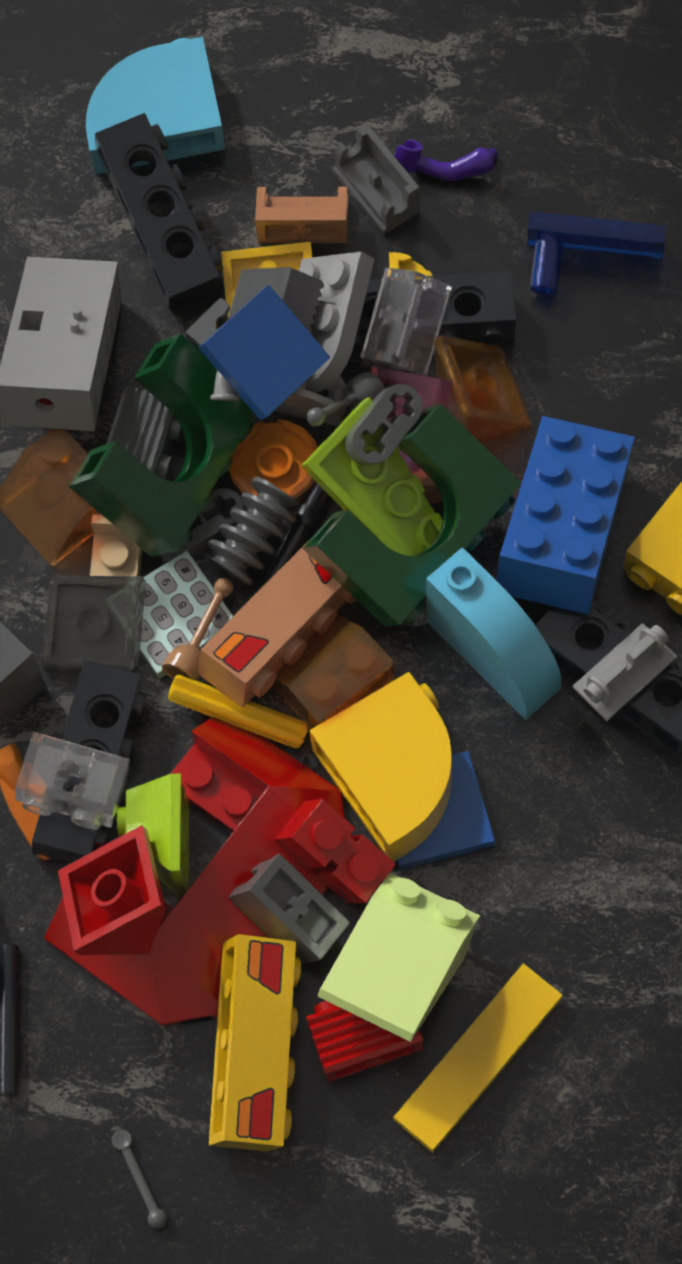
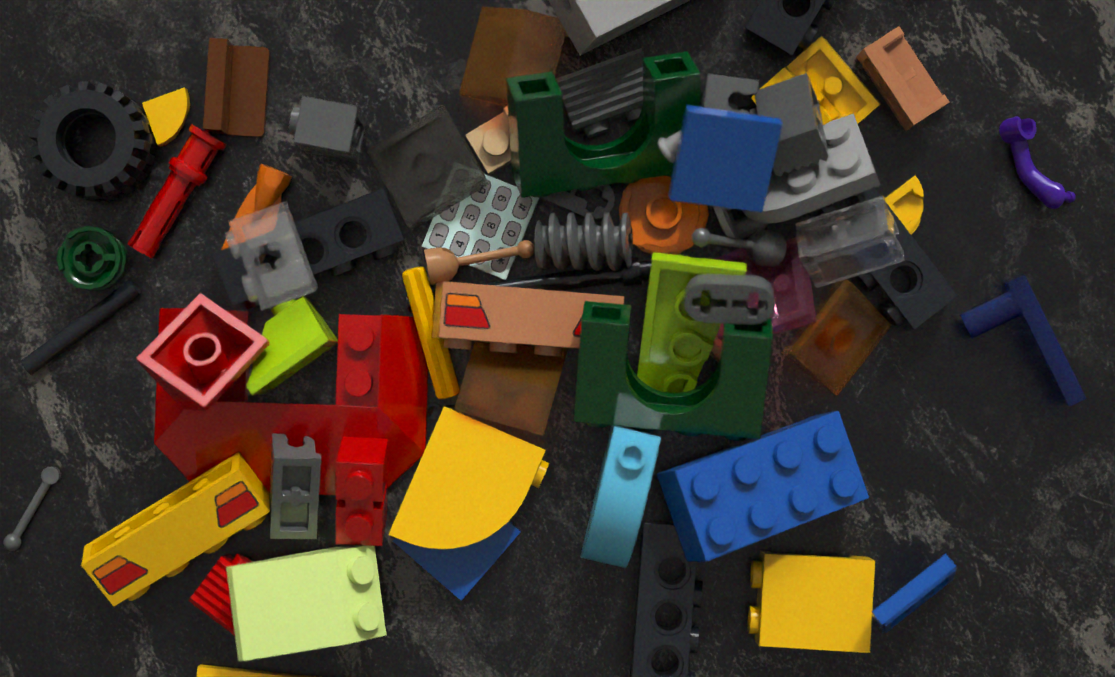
camera: 50 degrees right, 20 degrees up
(377, 181) = (974, 119): dark grey hinge -> none
(625, 670) = (656, 622): light grey hinge -> none

